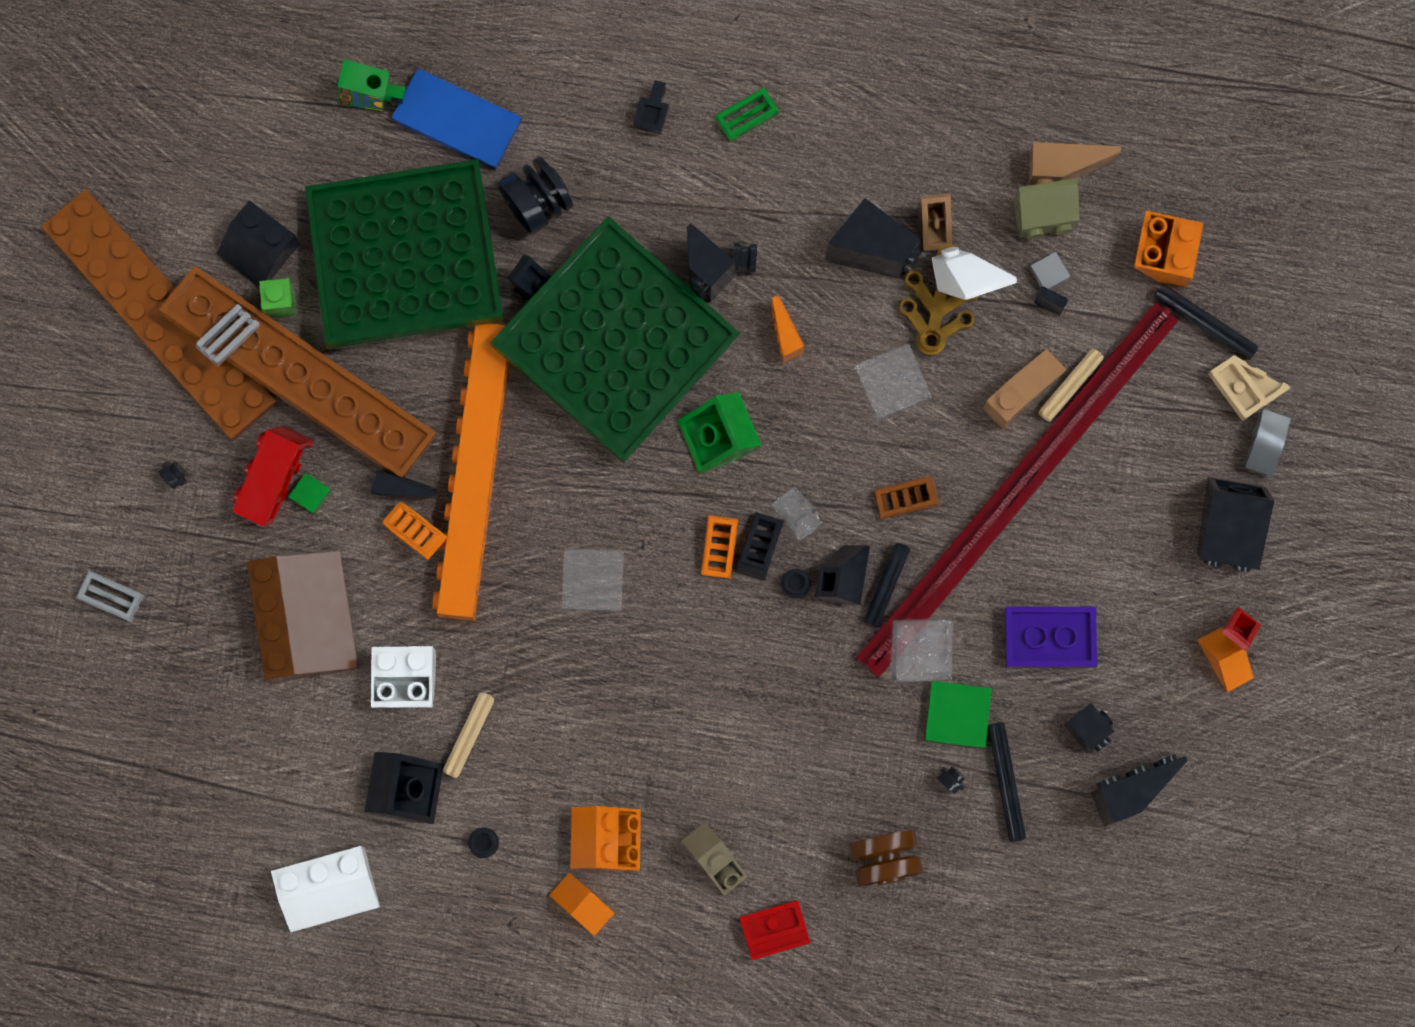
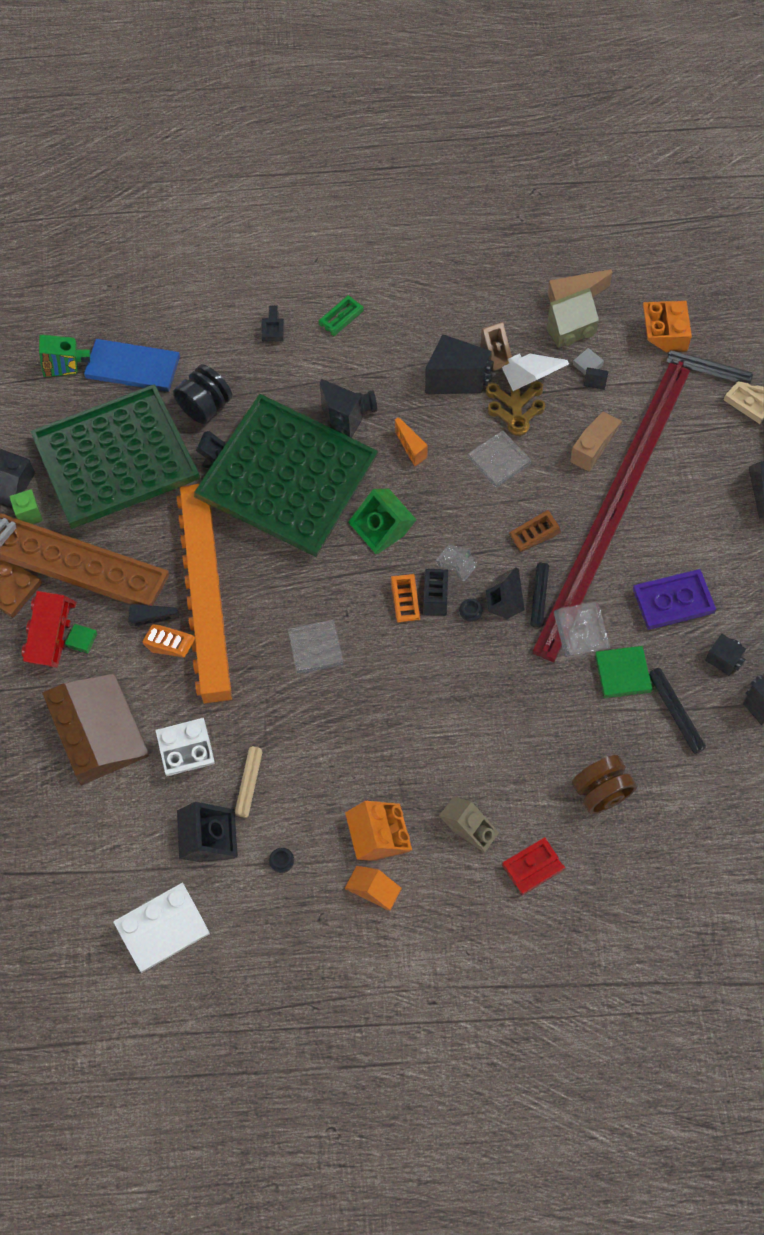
camera: 10 degrees left, 15 degrees down
(952, 779) = (634, 717): black plate -> none
(1071, 385) = (628, 430): tan axle -> none

